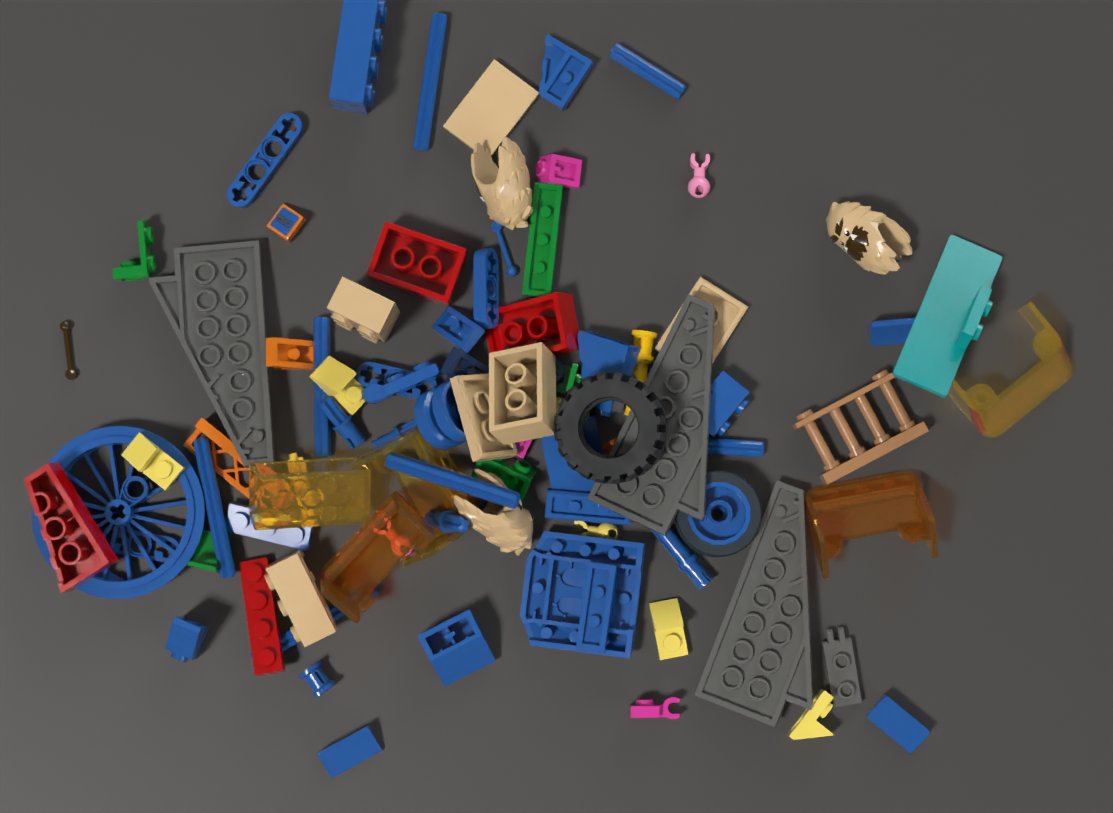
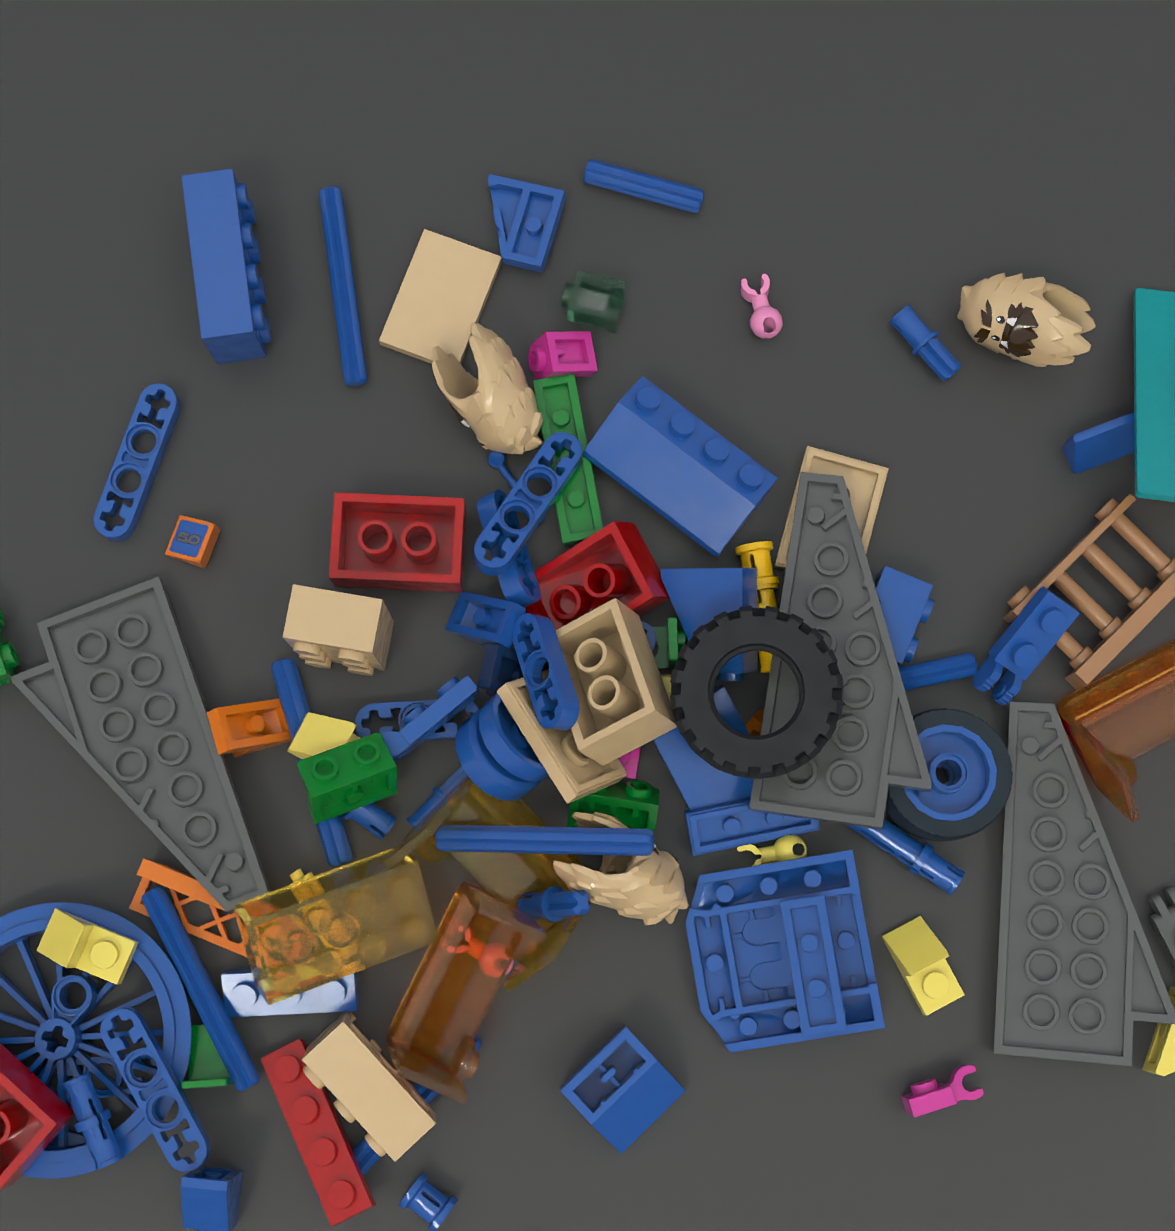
camera: 20 degrees left, 5 degrees down
(128, 568) = (92, 1120): none -> blue pin
(165, 561) = (149, 1092): none -> blue beam
(342, 405) = (348, 777): none -> green bracket
(485, 393) = (555, 698): none -> blue beam
(504, 261) = (531, 505): none -> blue beam
(590, 140) = (594, 300): none -> clear green window
(611, 267) = (679, 466): none -> blue slope
(796, 447) = (1024, 645): none -> blue hinge
(799, 231) = (925, 343): none -> blue axle

